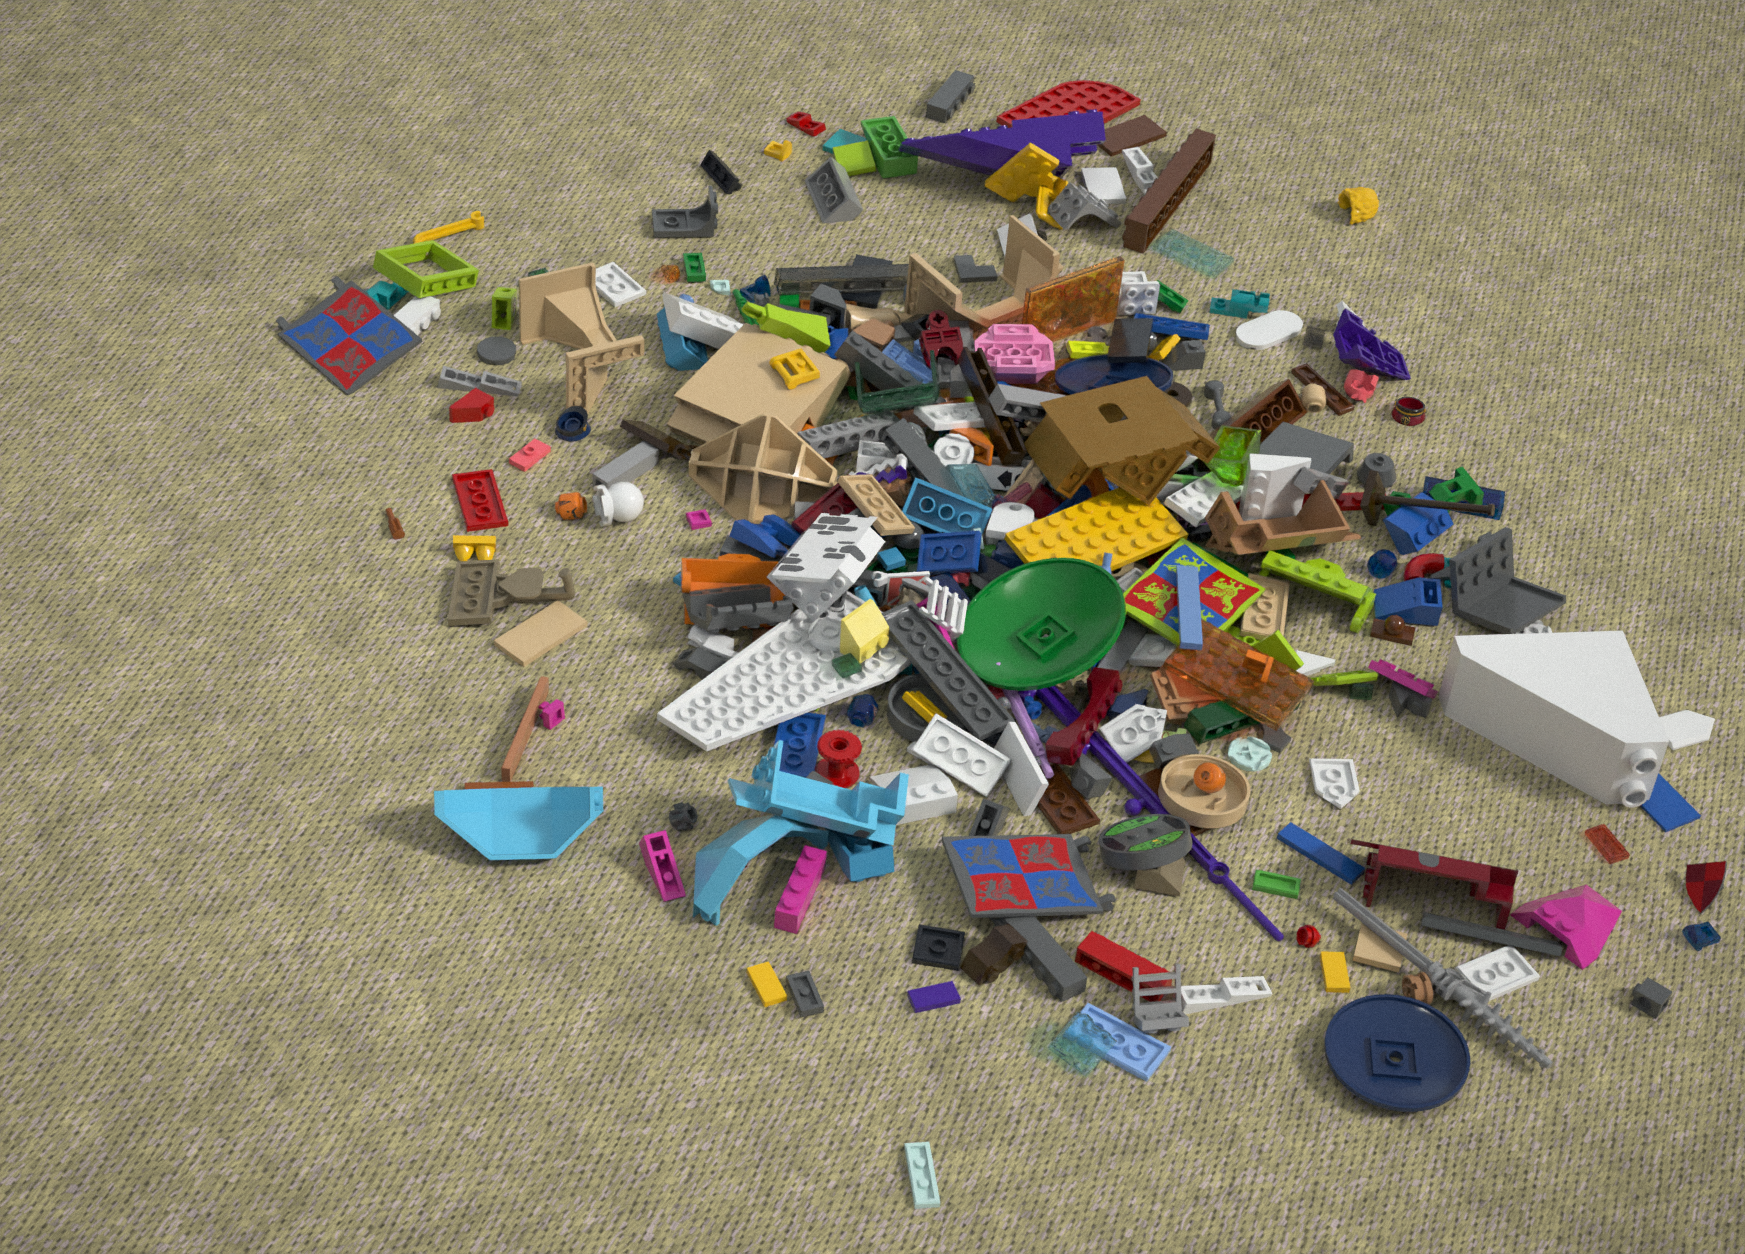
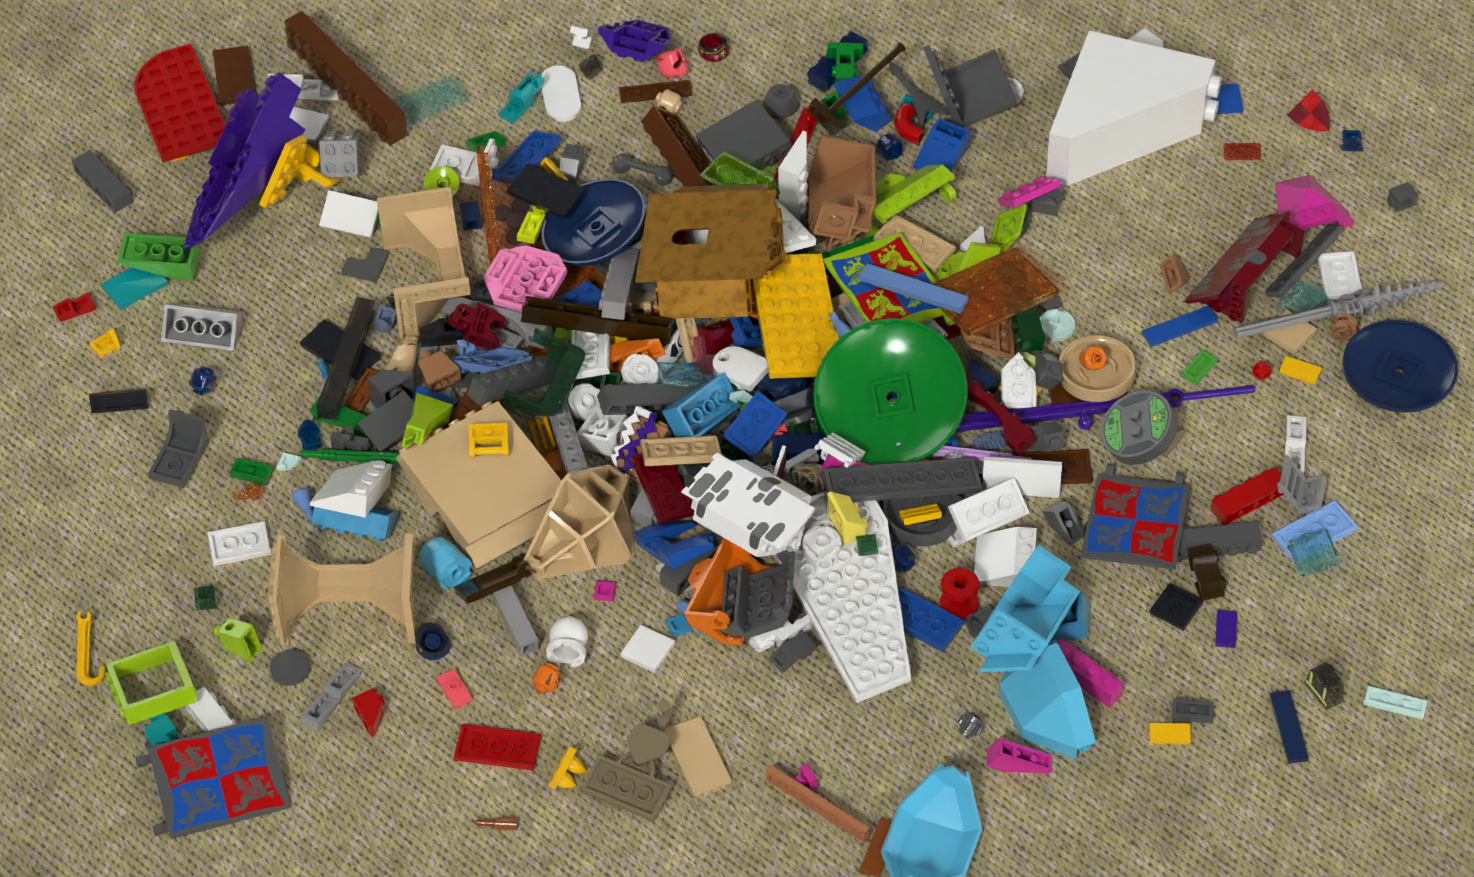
camera: 60 degrees left, 10 degrees up
(647, 566) = (647, 648): none -> white tile
(657, 403) = (445, 562): none -> medium azure piece
(772, 209) = (202, 380): none -> clear blue head
(832, 1085) = (1288, 727): none -> dark blue tile
(855, 158) = (157, 289): lime tile -> none
(906, 1090) = (1325, 685): none -> clear smoke torso
(1258, 663) = (1003, 269): orange tile -> none
(1309, 479) = (813, 141): light grey slope -> none
(1334, 780) = (1108, 284): white tile -> none
(1390, 831) = (1174, 273): none -> medium nougat slope
(1393, 630) = (965, 174): reddish brown tile -> none
(1436, 945) = (1303, 298): none -> clear light blue slope

